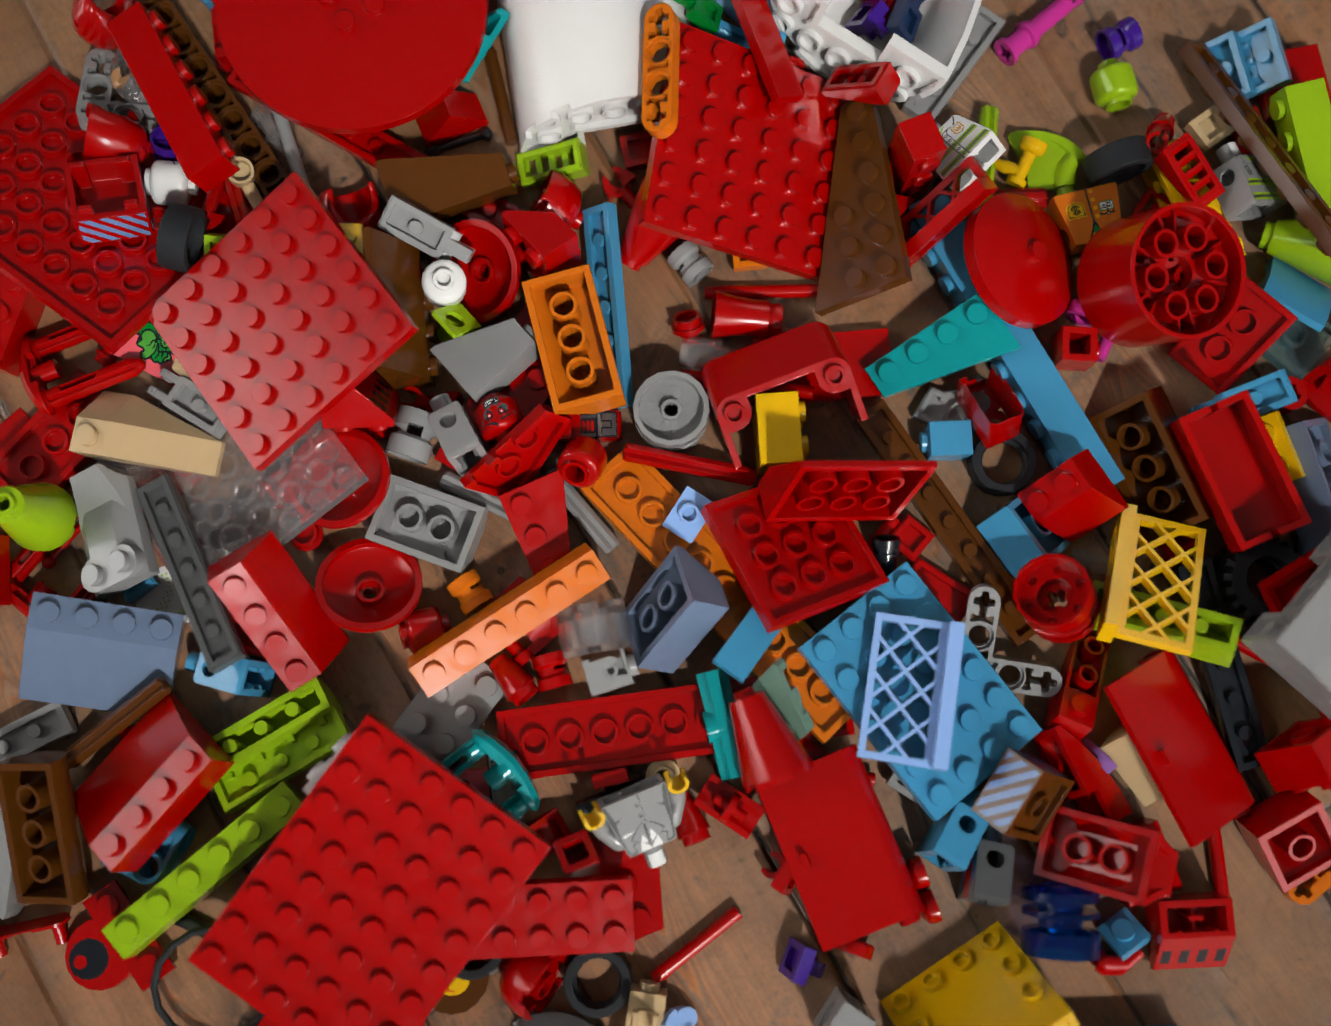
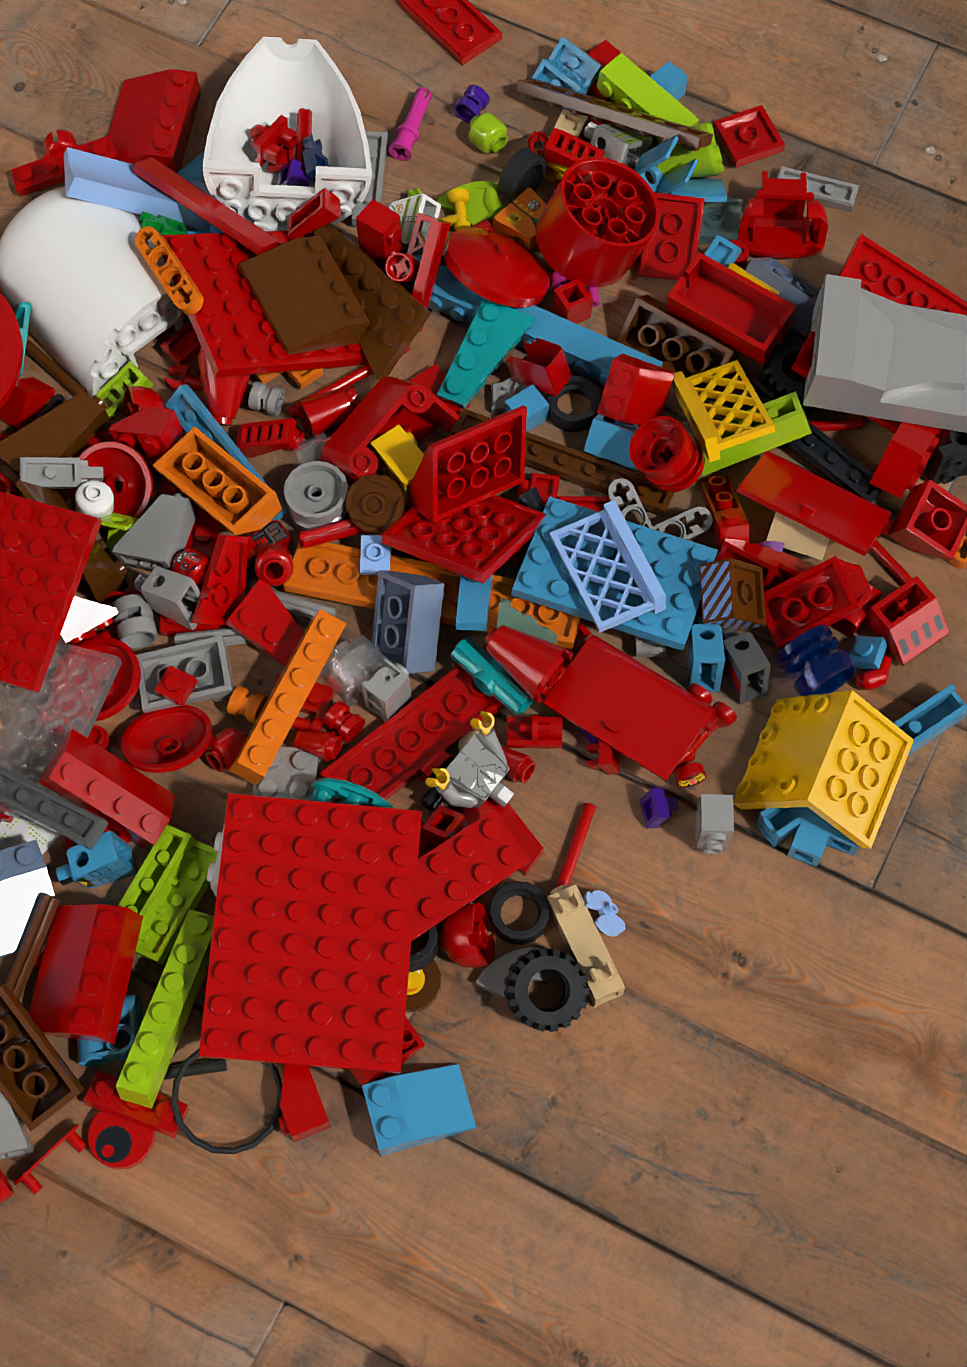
camera: 35 degrees left, 15 degrees down
(408, 536) = (176, 685): none -> red plate
(651, 302) = (263, 436): none -> red slope
(721, 462) = (375, 502): none -> reddish brown tile
(792, 177) = (305, 296): none -> reddish brown slope
(908, 206) = (397, 266): none -> red wheel
(1276, 268) = (658, 154): none -> dark azure piece

